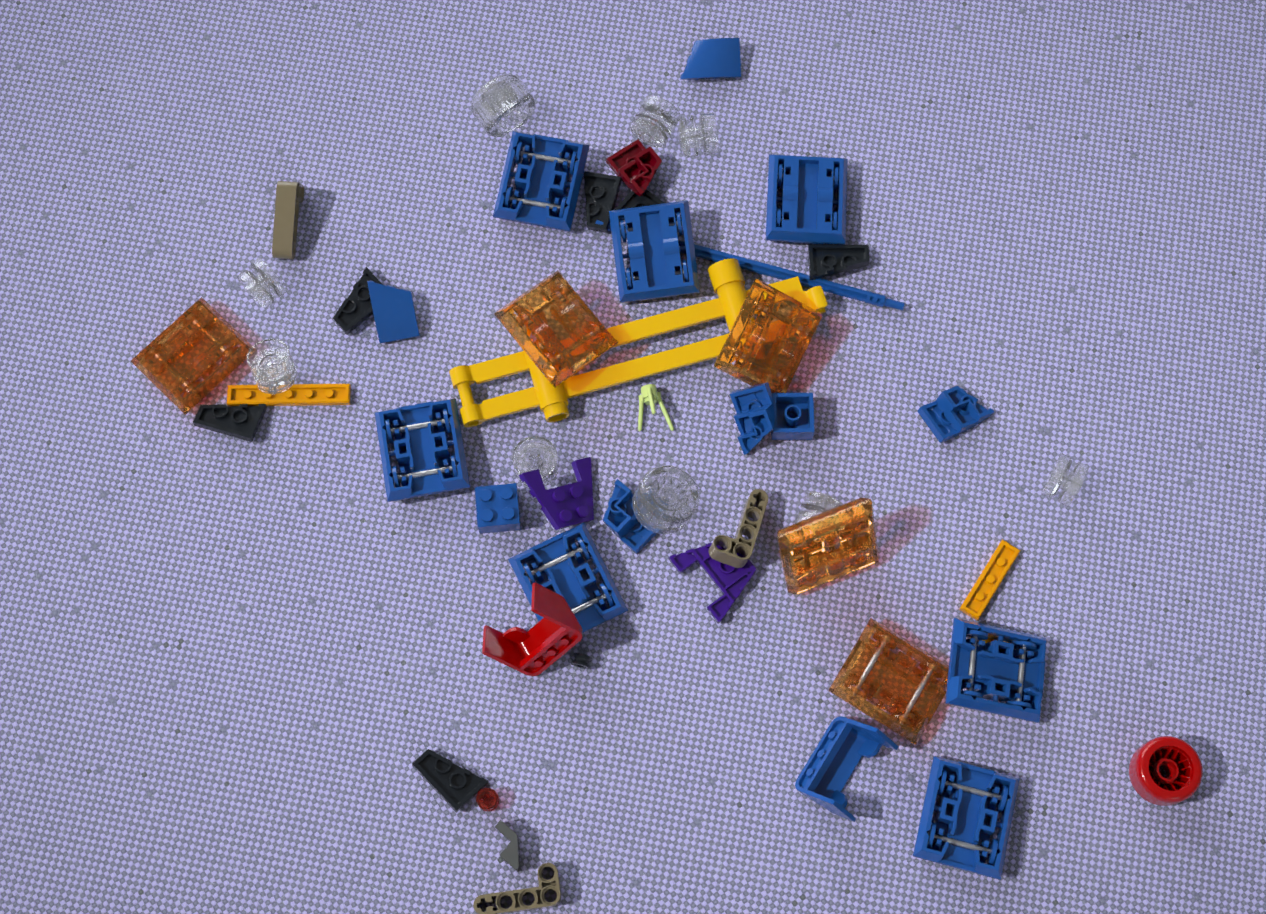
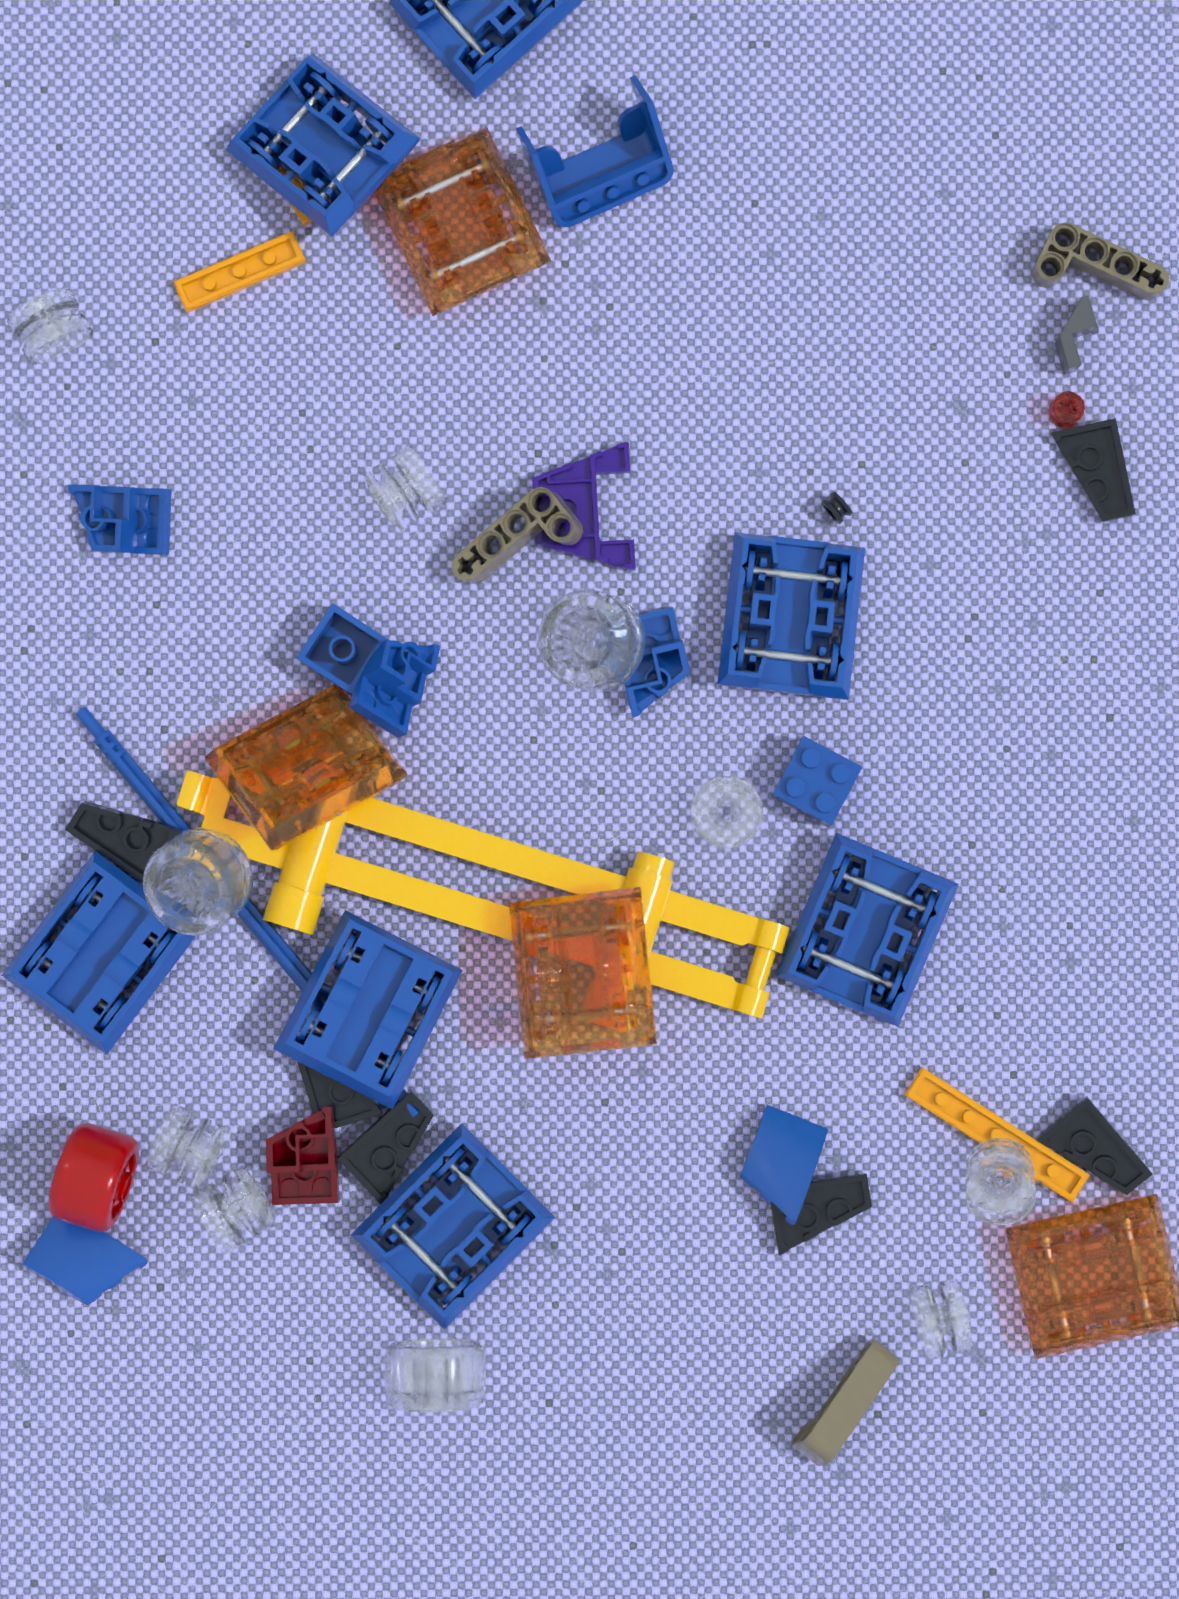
camera: 145 degrees left, 15 degrees up
(544, 643) = (887, 558): red windscreen -> none
(565, 504) = (719, 725): dark purple wing -> none
(650, 397) = (511, 809): yellowish green plant -> none
(733, 92) = (93, 1177): none -> red wheel
(782, 254) = (198, 881): none -> clear wheel
(828, 545) = (424, 433): clear orange piece -> none

